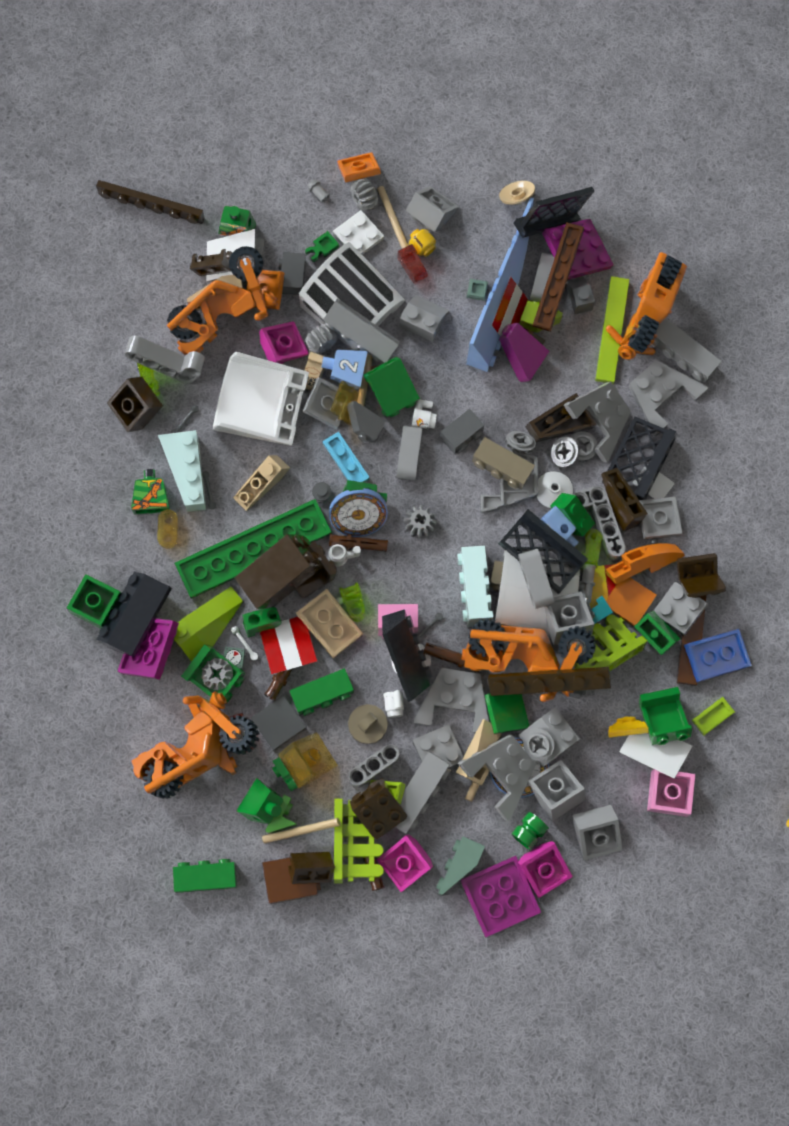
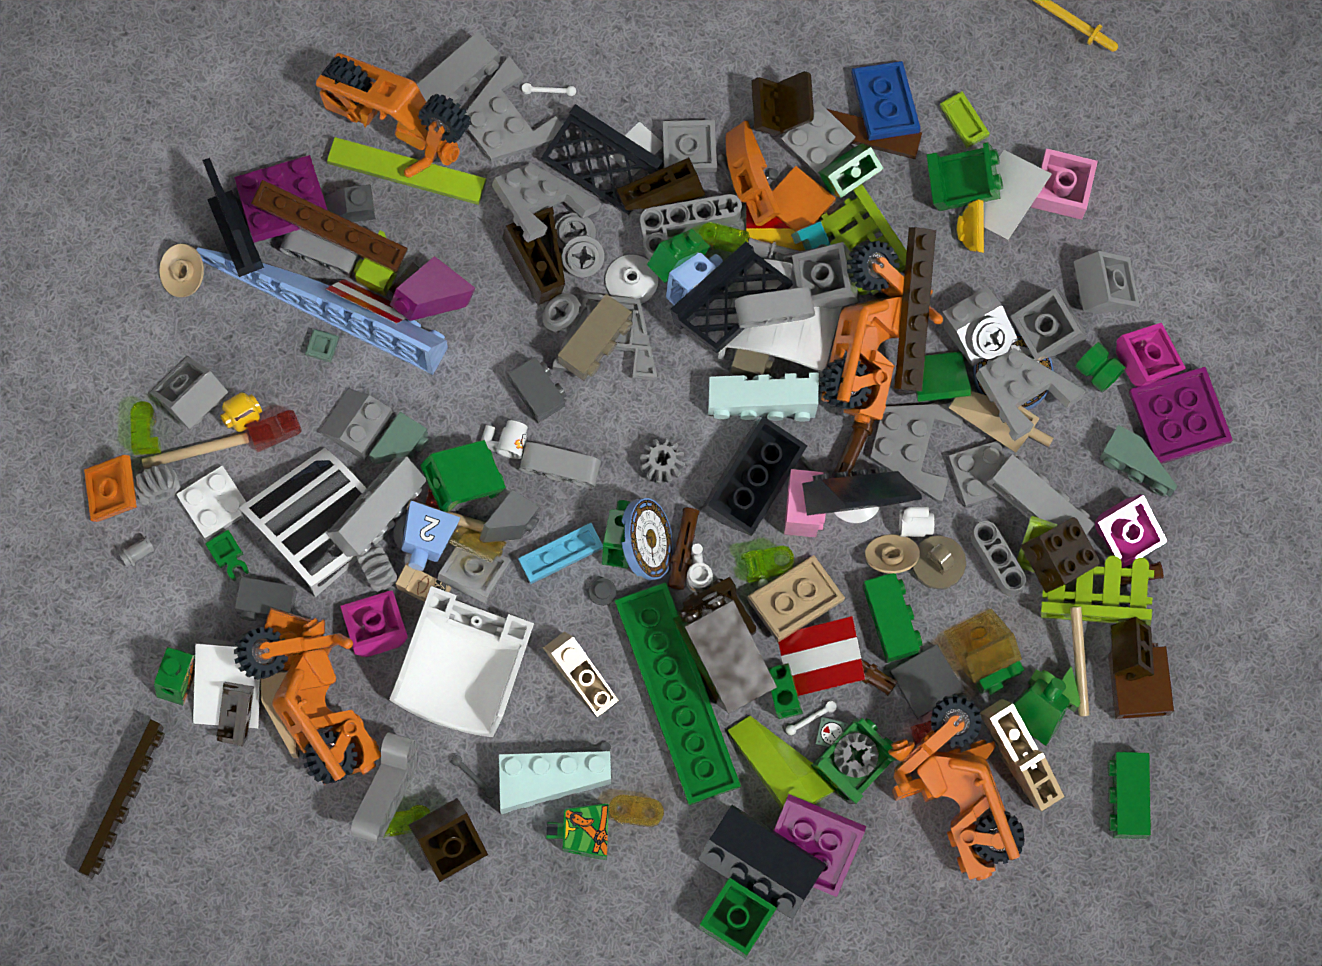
camera: 85 degrees left, 0 degrees up
(226, 792) = (1022, 754): none -> tan brick
(374, 687) = (892, 554): none -> tan dish
(403, 183) = (142, 422): none -> clear neon green leg
(414, 345) = (400, 440): none -> sand green slope
(414, 584) = (754, 476): none -> black slope
(686, 404) = (527, 89): none -> white hinge

